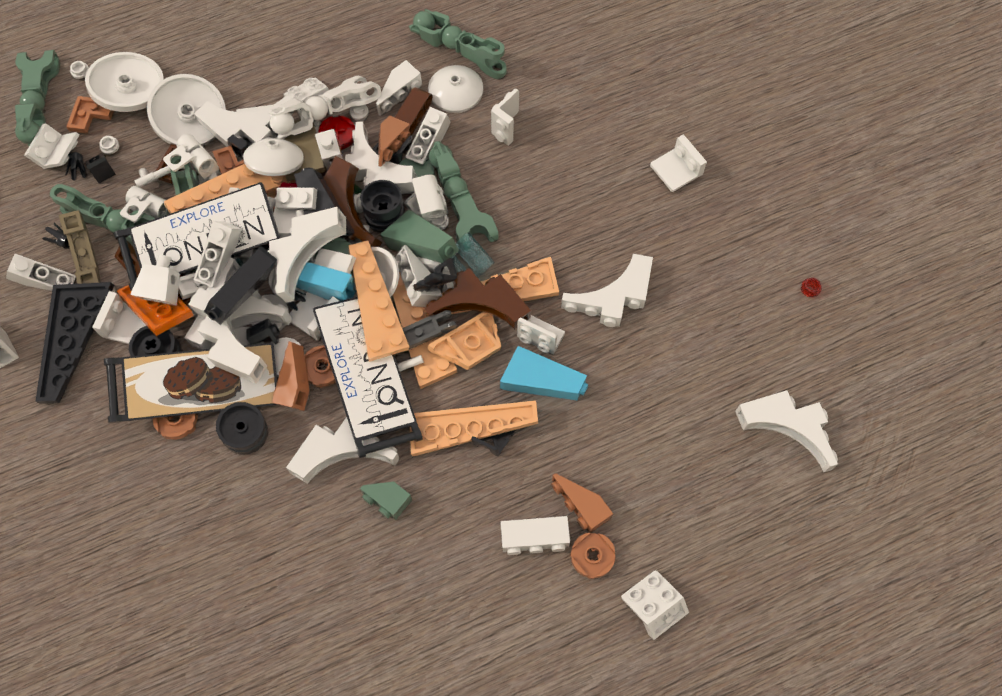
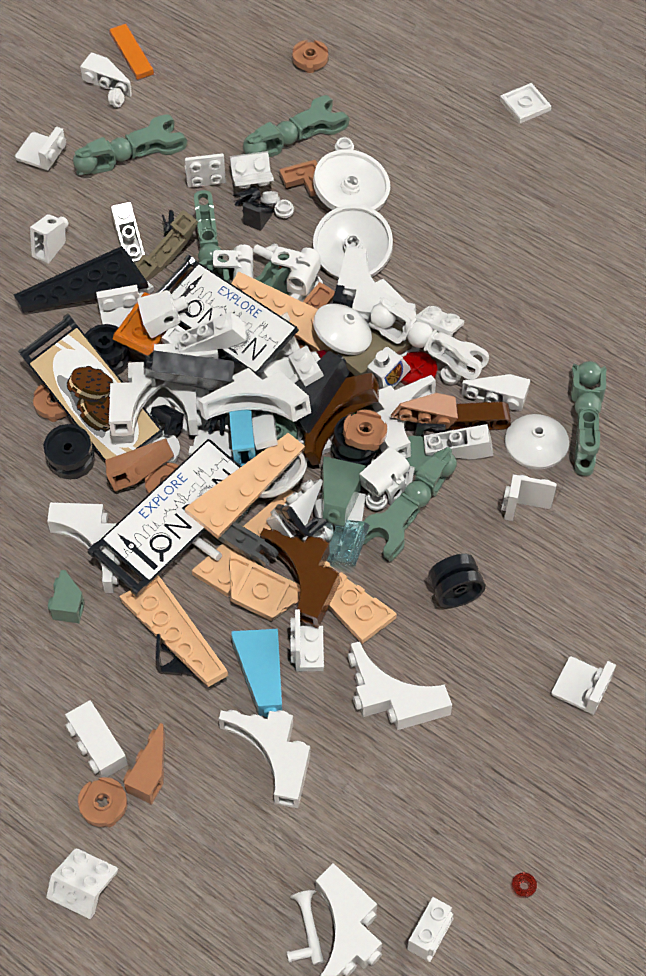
camera: 60 degrees right, 10 degrees down
(22, 182) = (205, 170): none -> white bracket
(90, 149) = (270, 198): none -> white plate
(389, 197) = (365, 440): none -> nougat plate
(549, 199) = (456, 580): none -> black wheel
(630, 397) = (272, 738): none -> white arch
(794, 455) = (314, 949): none -> white piece
(821, 362) = (430, 929): none -> white window

